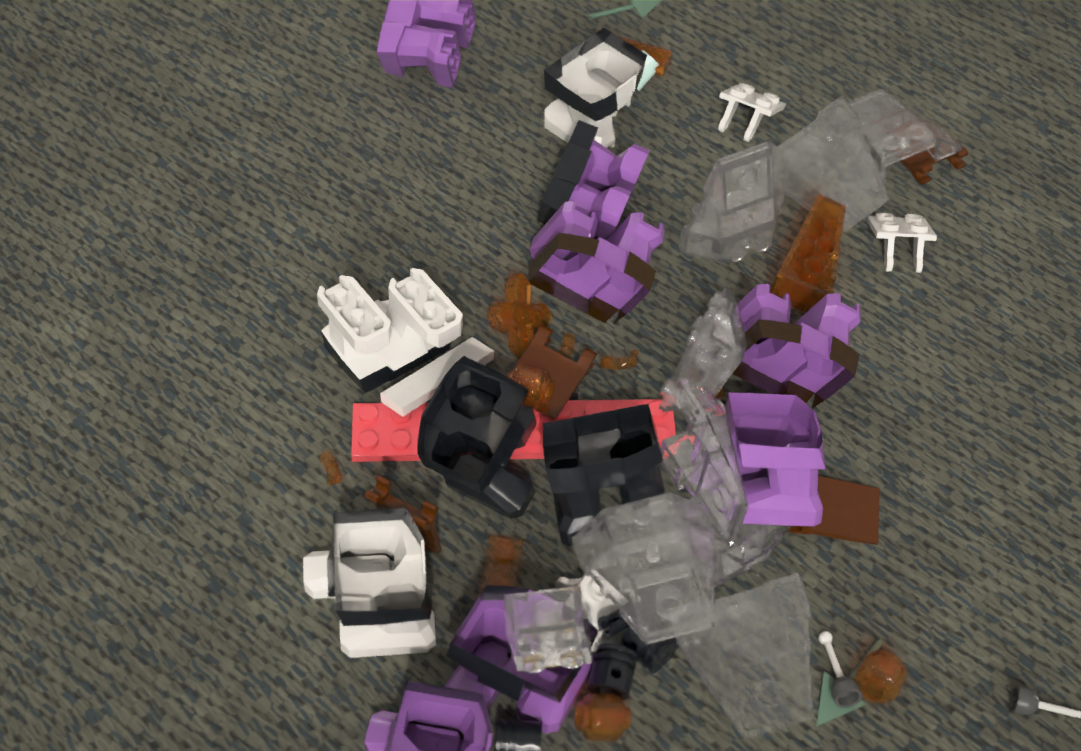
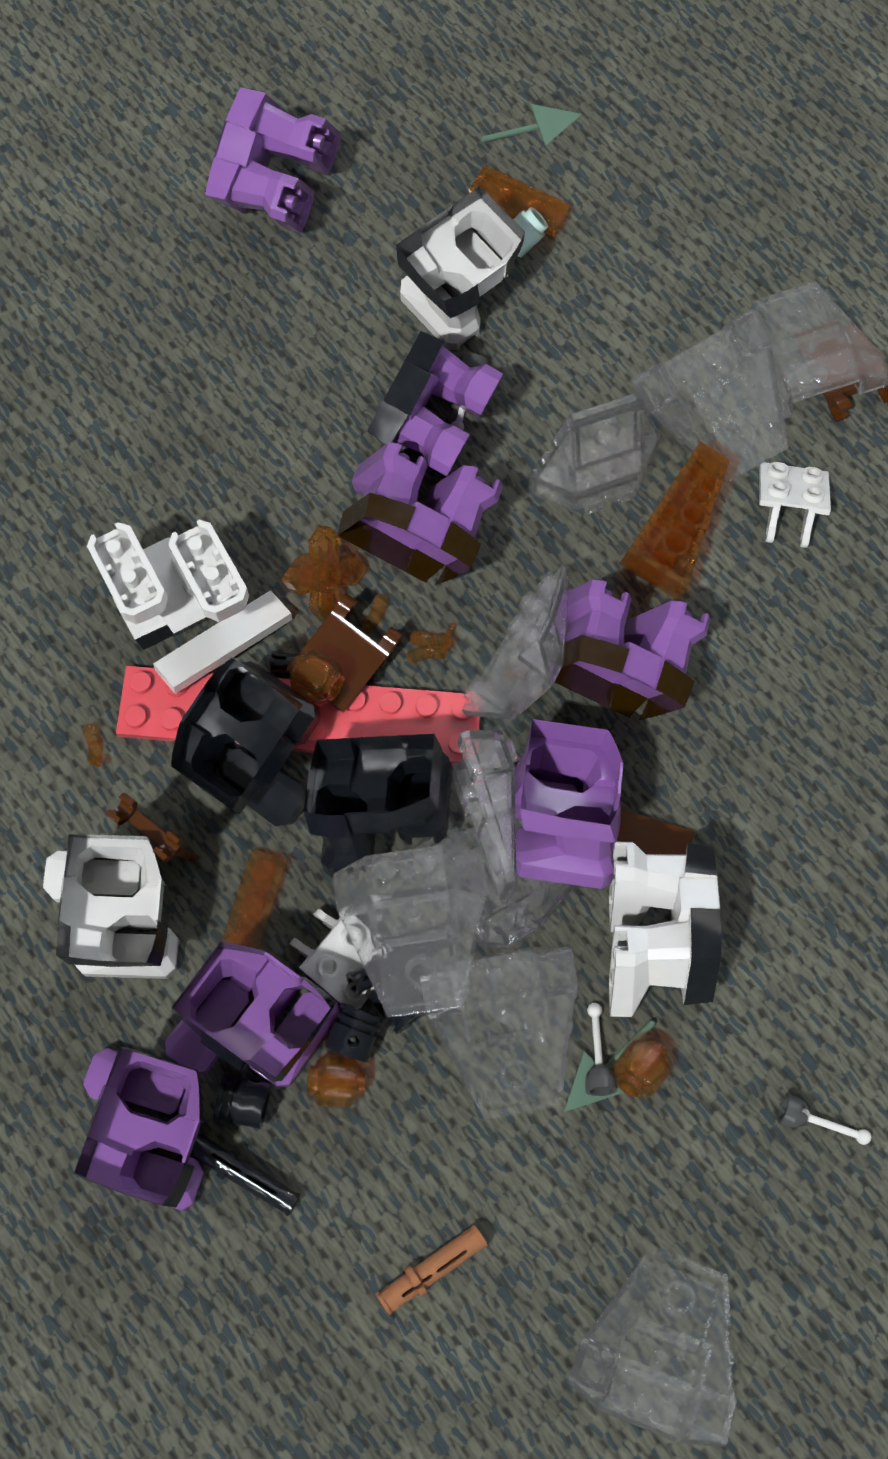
camera: 10 degrees right, 20 degrees up
(548, 629) = (268, 1019): clear brick -> none
(619, 373) = (428, 651): none -> clear orange piece
(765, 105) = (654, 285): white plate -> none
(892, 565) = (669, 953): none -> white piece

